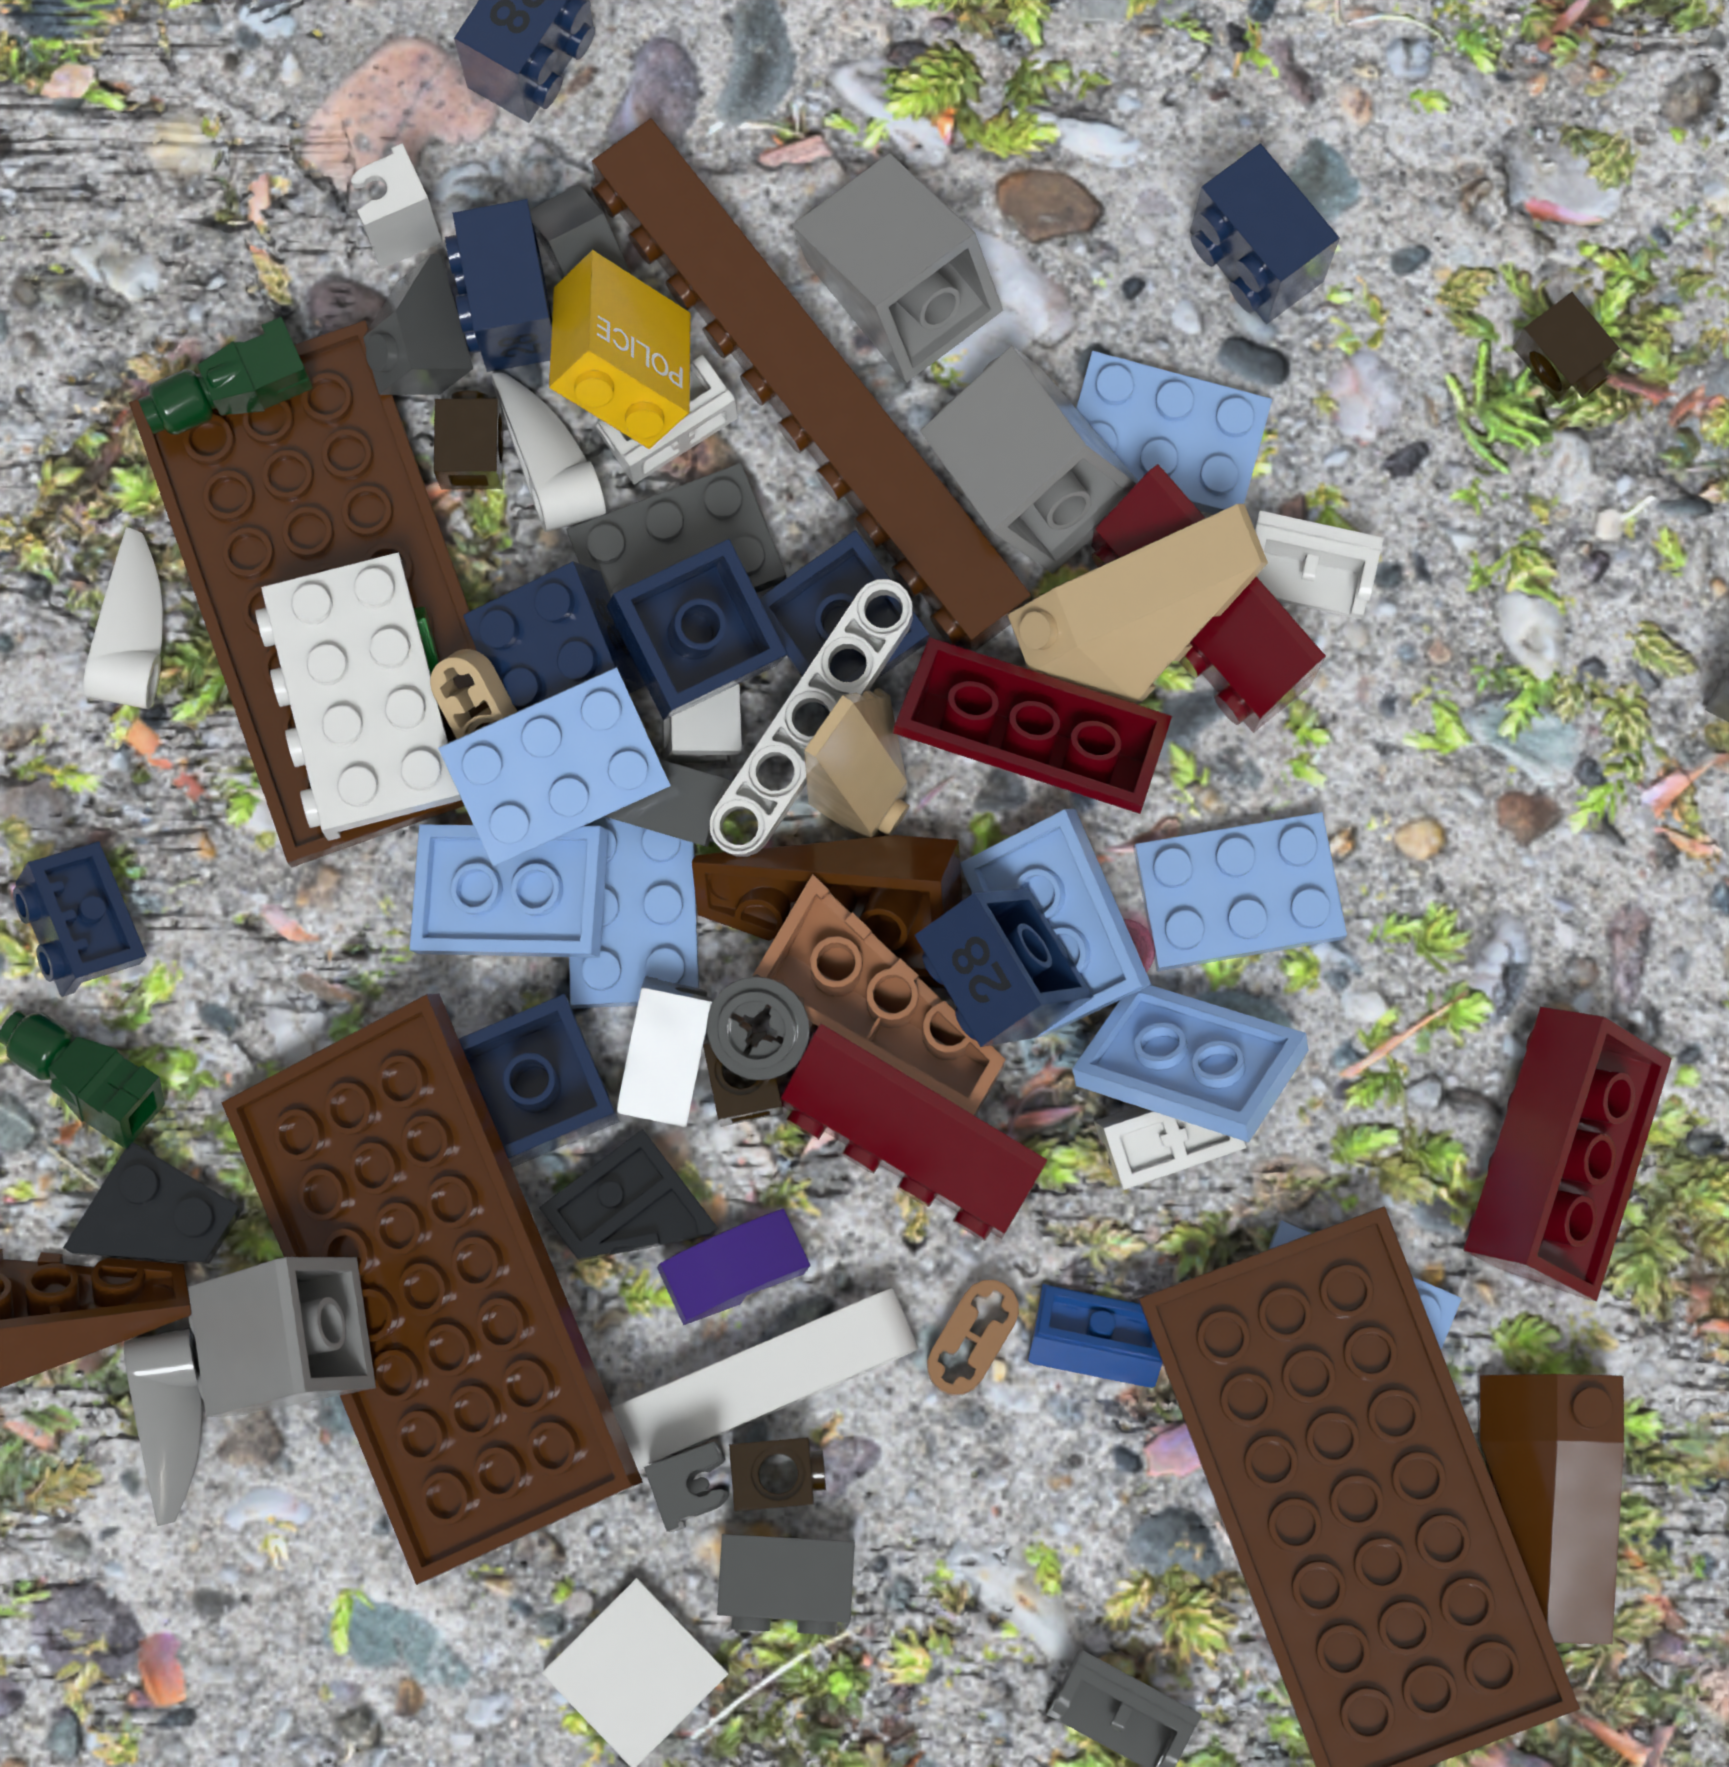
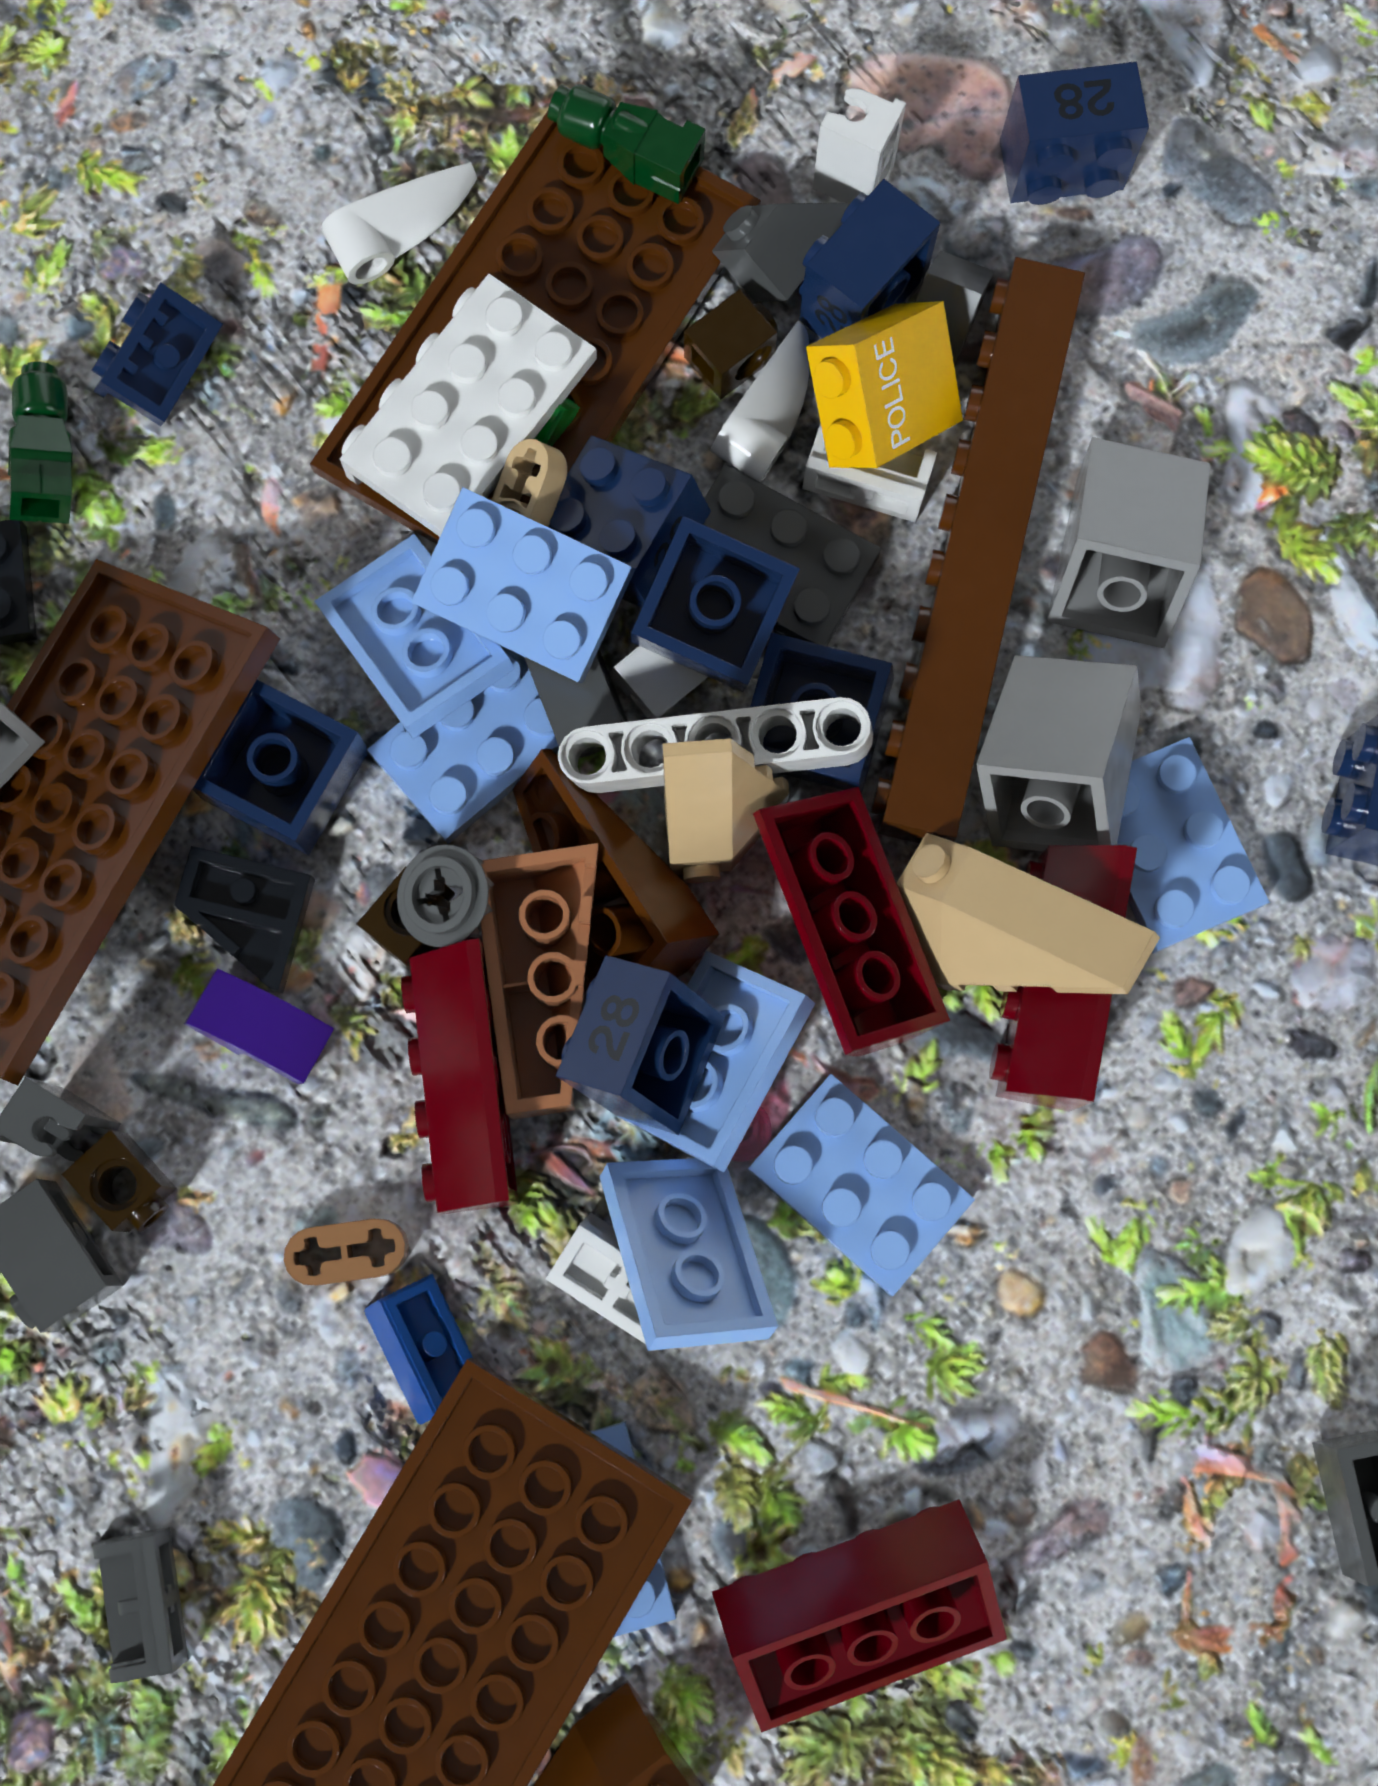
camera: 50 degrees right, 0 degrees up
(664, 1052) = (377, 840): hinge -> none
(765, 1378) = (185, 1116): white beam -> none
(1317, 564) = (1166, 1037): white hinge -> none

